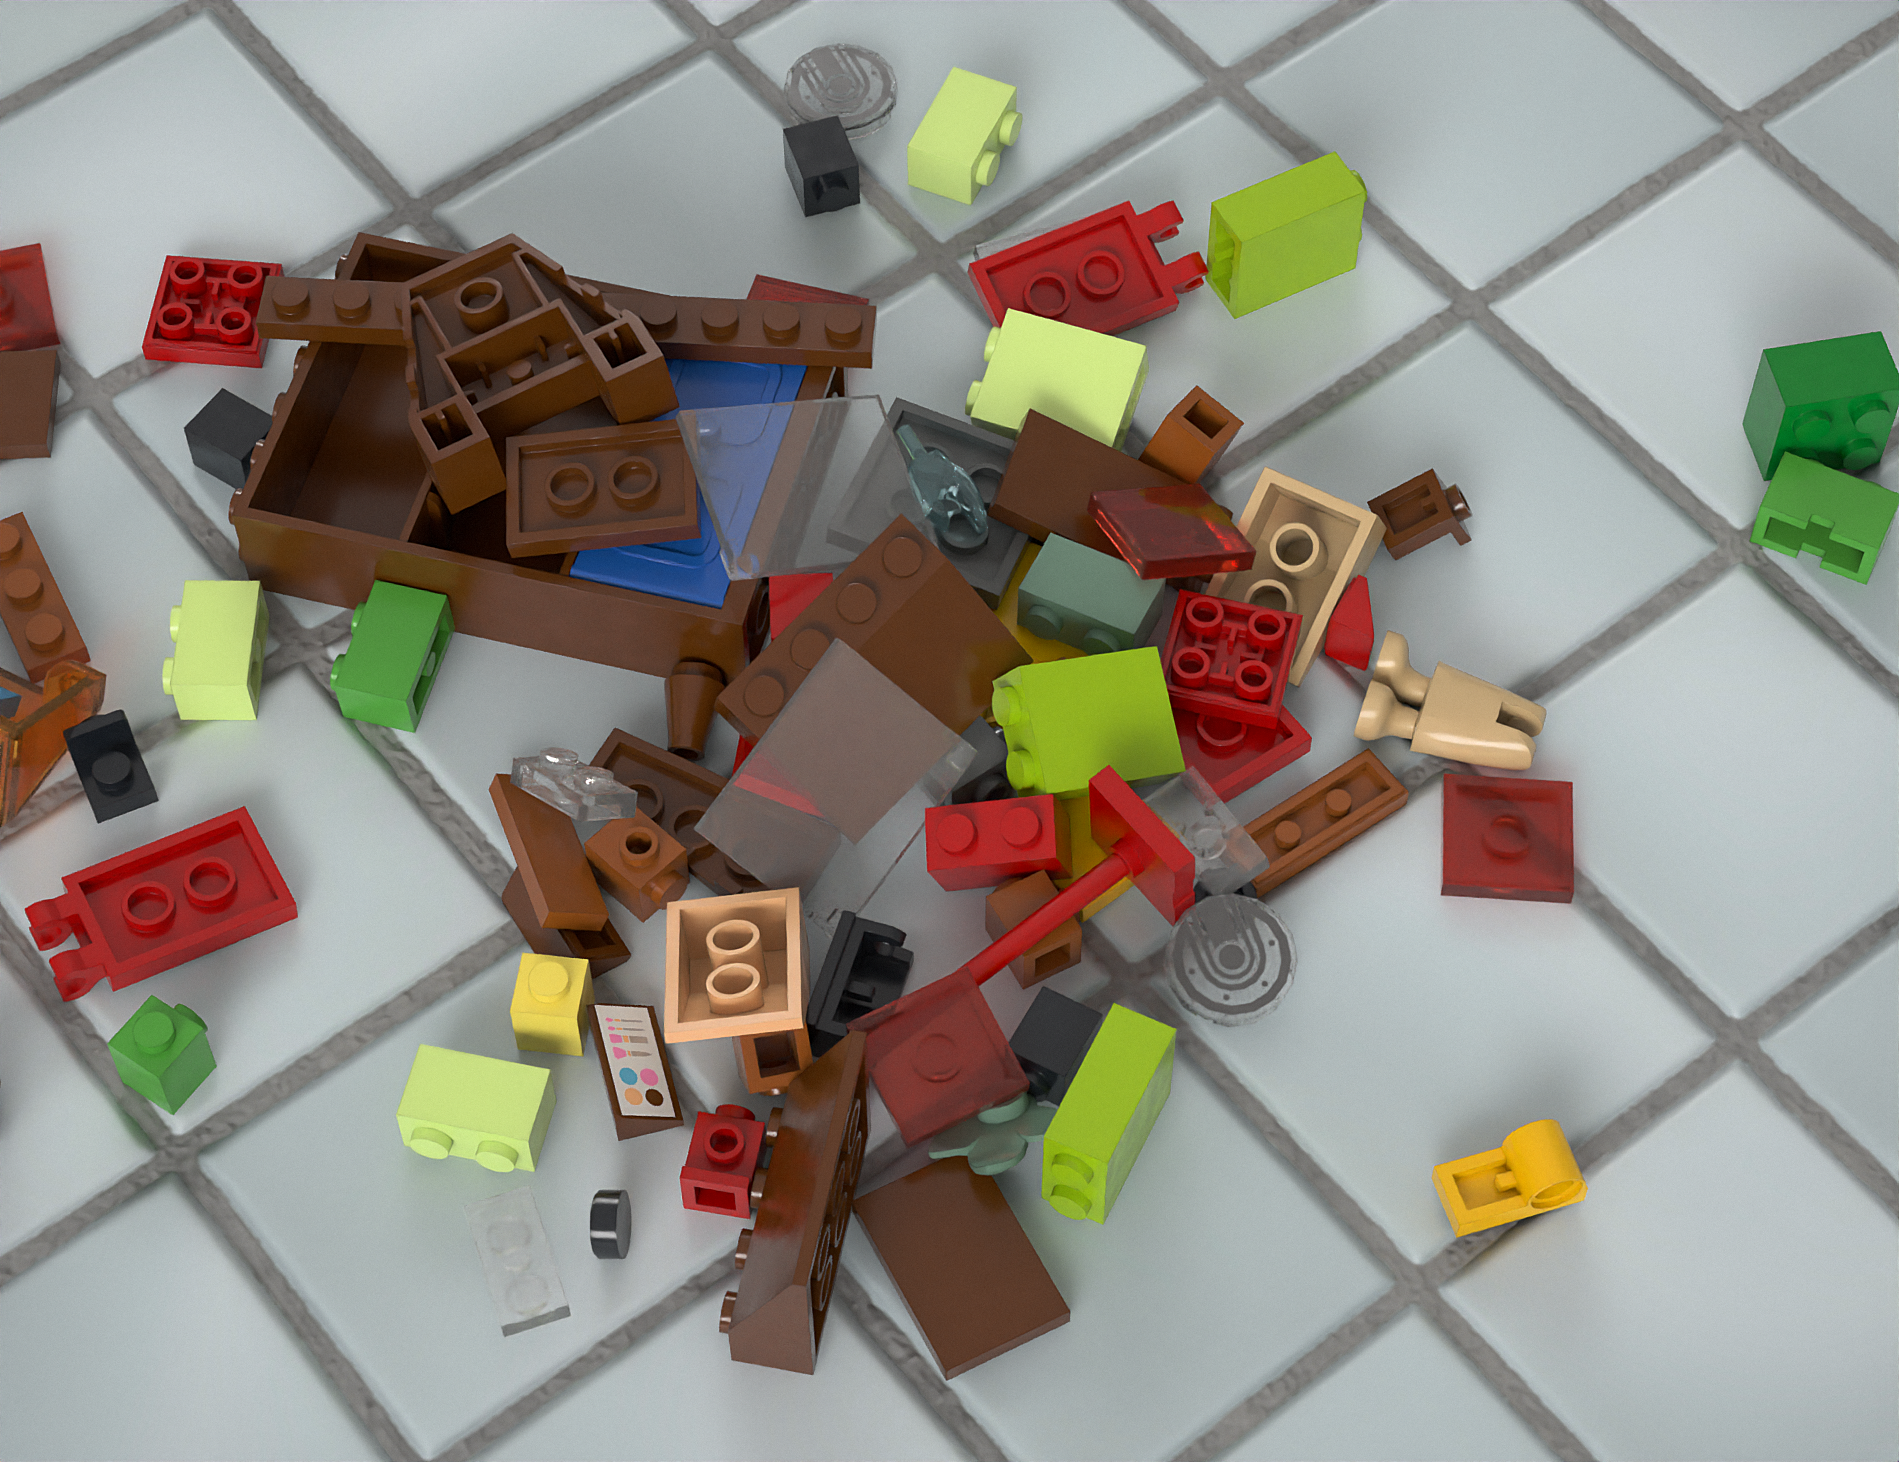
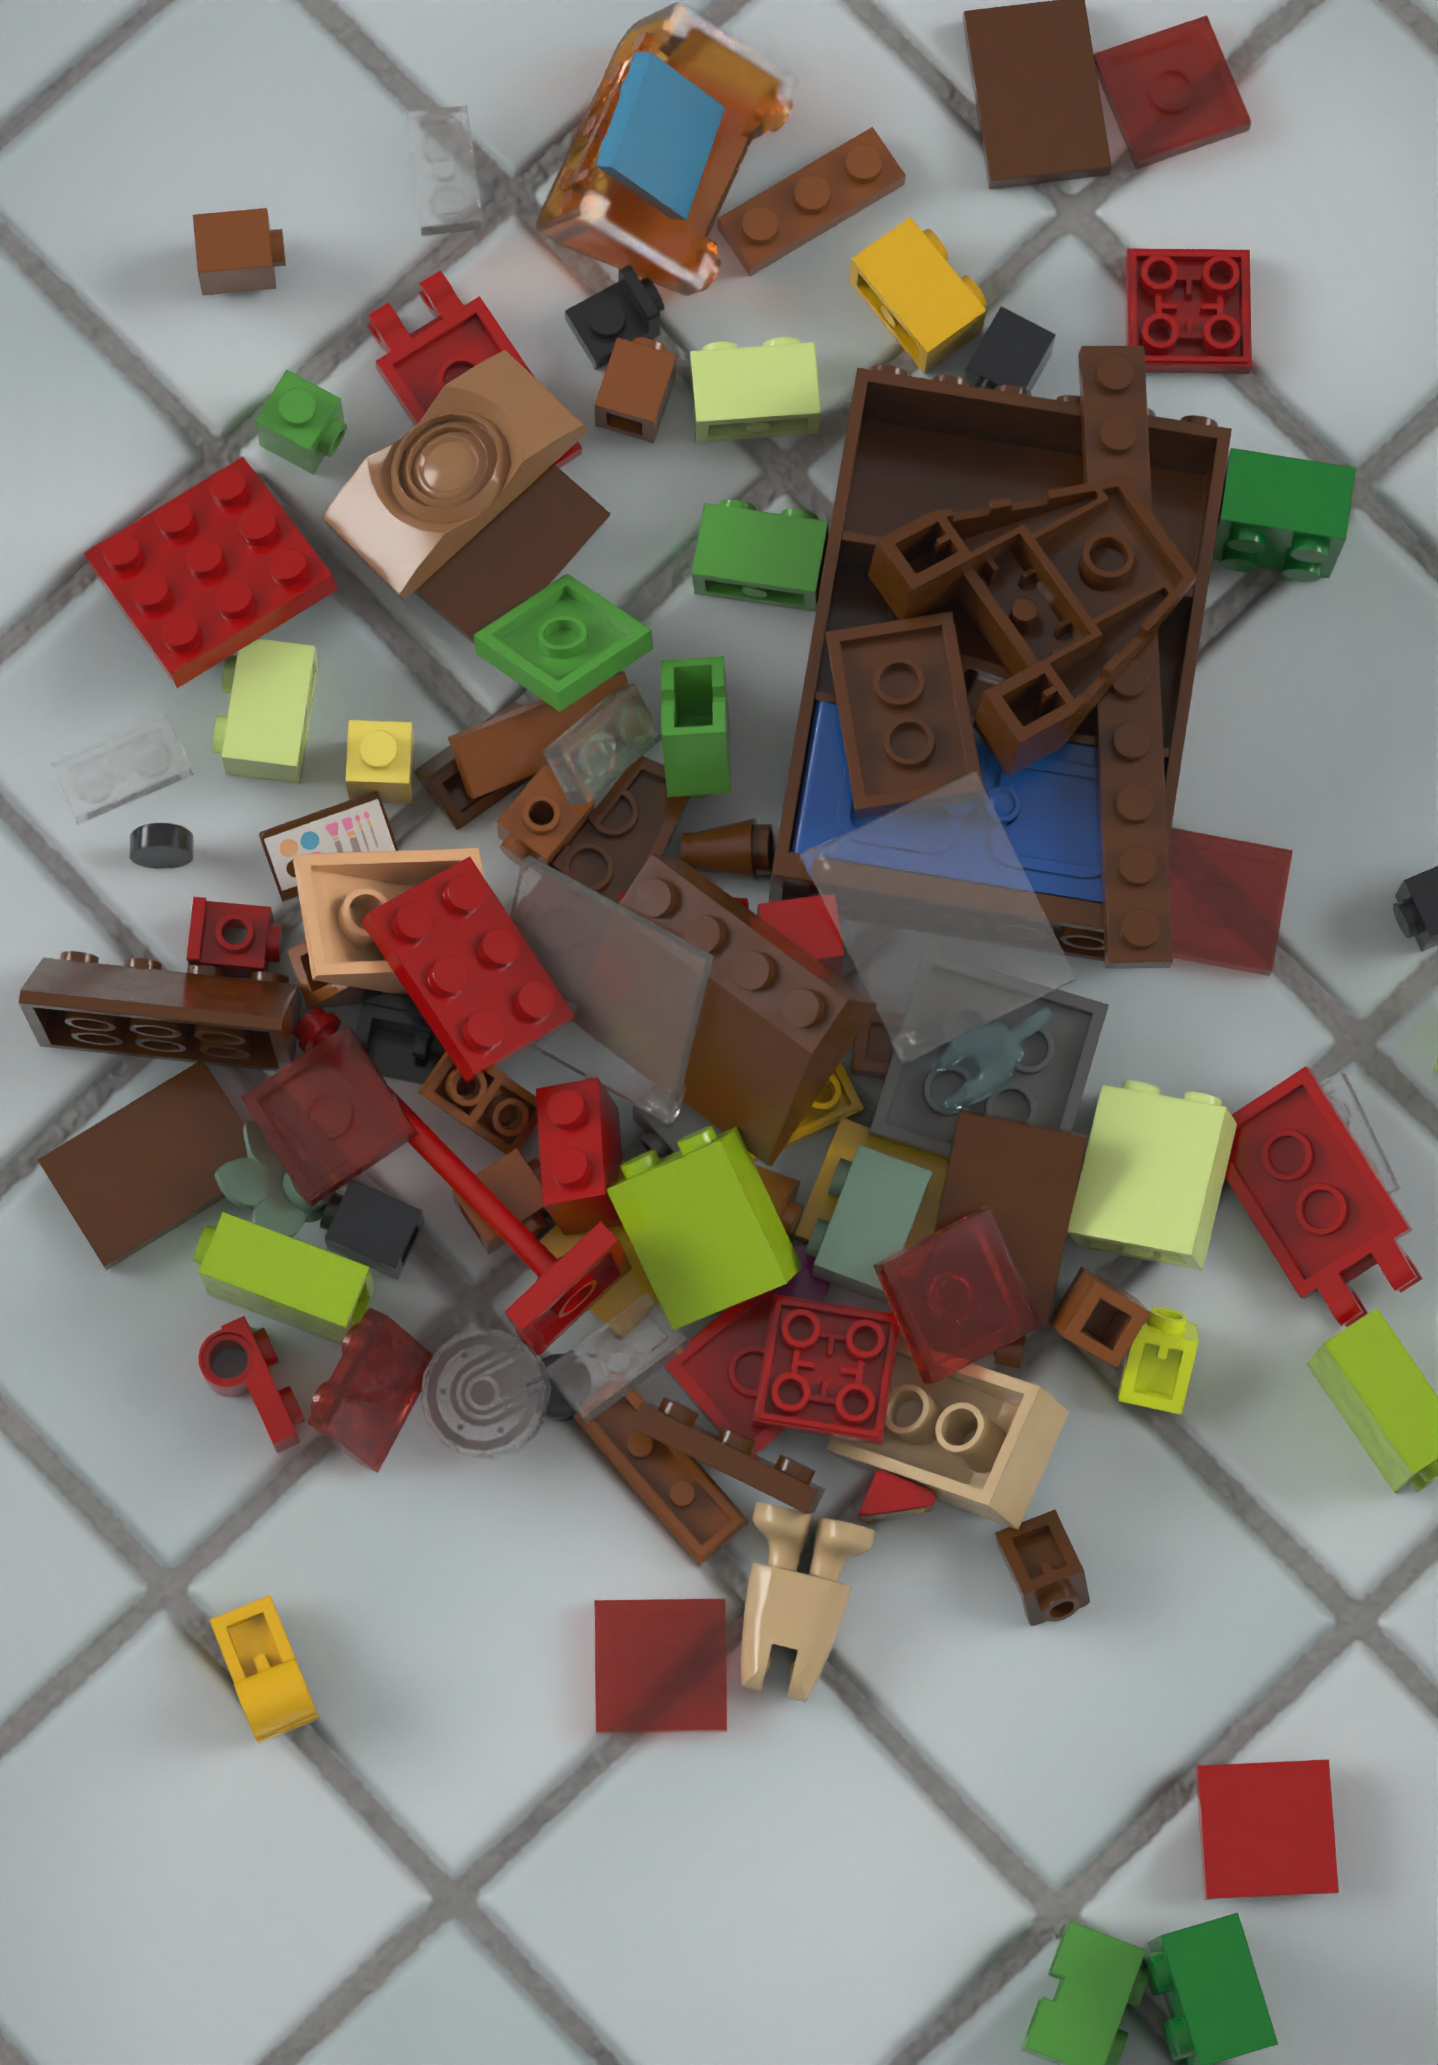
camera: 80 degrees right, 20 degrees up
(150, 509) = (918, 293): none -> yellow brick
(193, 750) = (636, 388): none -> dark orange brick
(255, 907) = (452, 472): none -> medium nougat slope
(314, 1149) = (210, 571): none -> red plate
(334, 883) = (514, 553): none -> reddish brown tile
(443, 203) = (1283, 514): none -> green brick
(456, 821) = (563, 642): none -> bright green plate
(573, 706) = (695, 727): none -> bright green brick
(802, 901) = (468, 969): none -> red plate
(931, 925) = (487, 1105): none -> dark orange slope
(1211, 1163) = (276, 1407): none -> red plate
(1246, 1058) = (370, 1389): none -> clear red tile
(1248, 403) = (1160, 1362): none -> neon yellow bracket
(1310, 735) = (730, 1454): none -> reddish brown plate
(1665, 373) = (1266, 1829): none -> red tile

